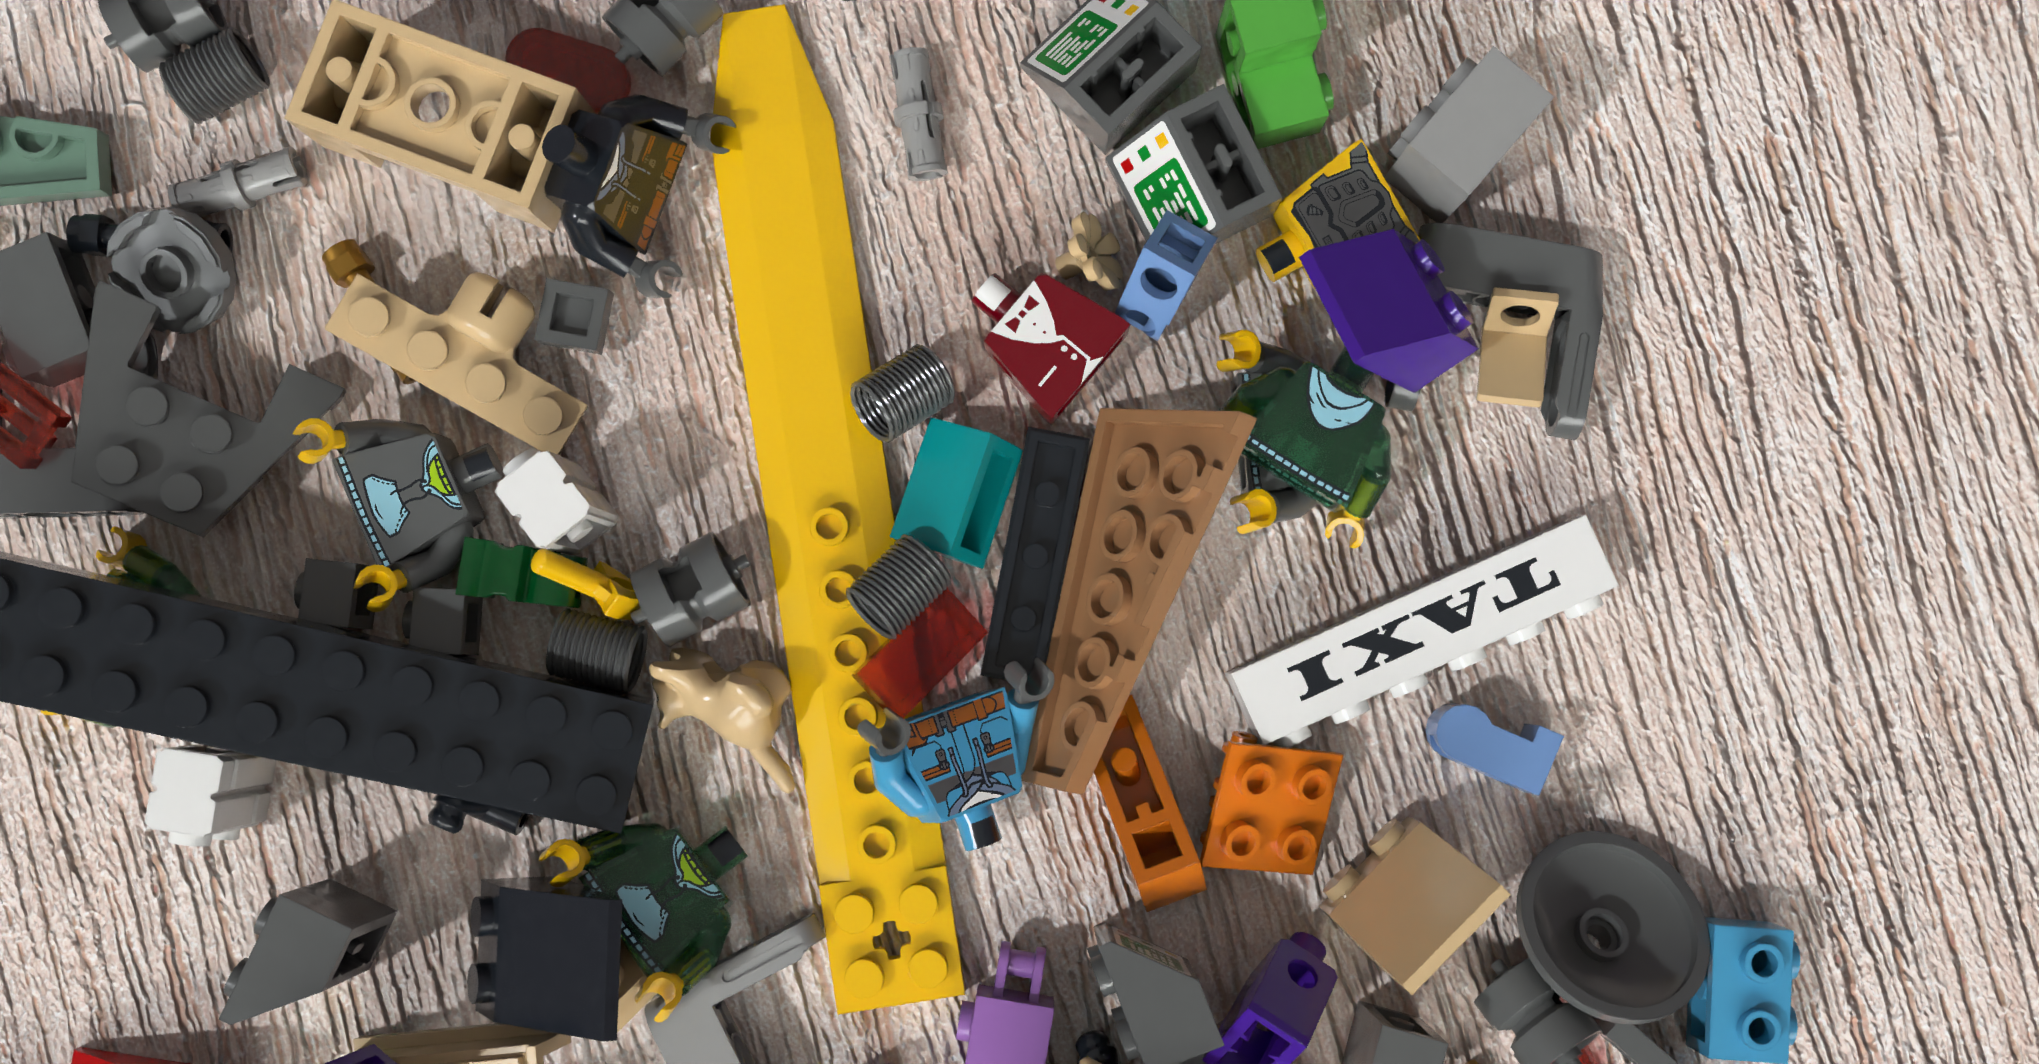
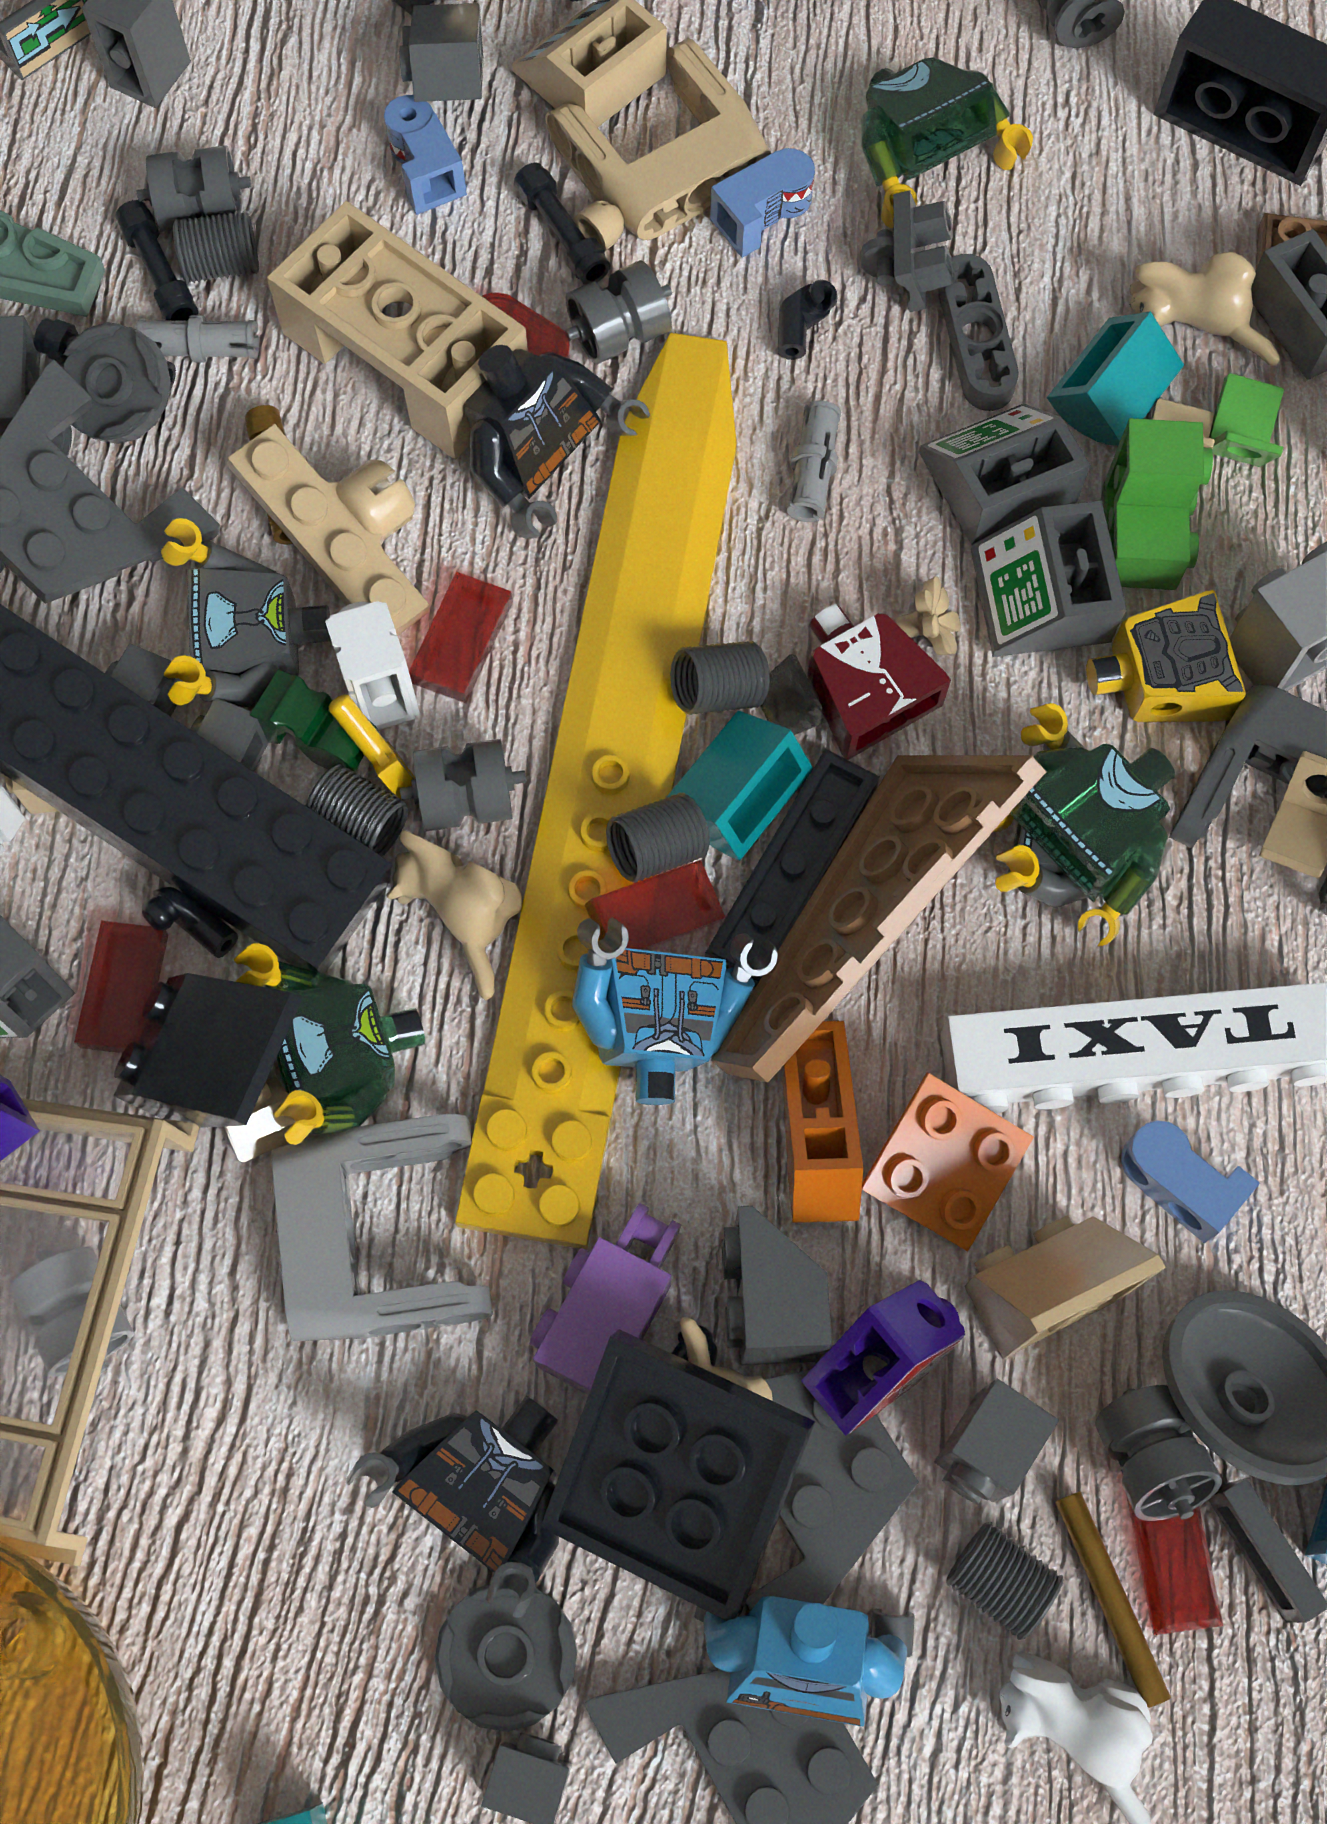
camera: 15 degrees right, 15 degrees down
(191, 145) = (142, 233): none -> black bar
(437, 894) = (119, 983): none -> clear red tile
(574, 316) = (446, 529): dark grey plate -> none
(630, 425) = (461, 637): none -> clear red tile
(979, 385) = (791, 698): none -> clear smoke slope
(1164, 274) = (994, 649): medium blue leg -> none
(1392, 306) = (1203, 727): dark purple slope -> none

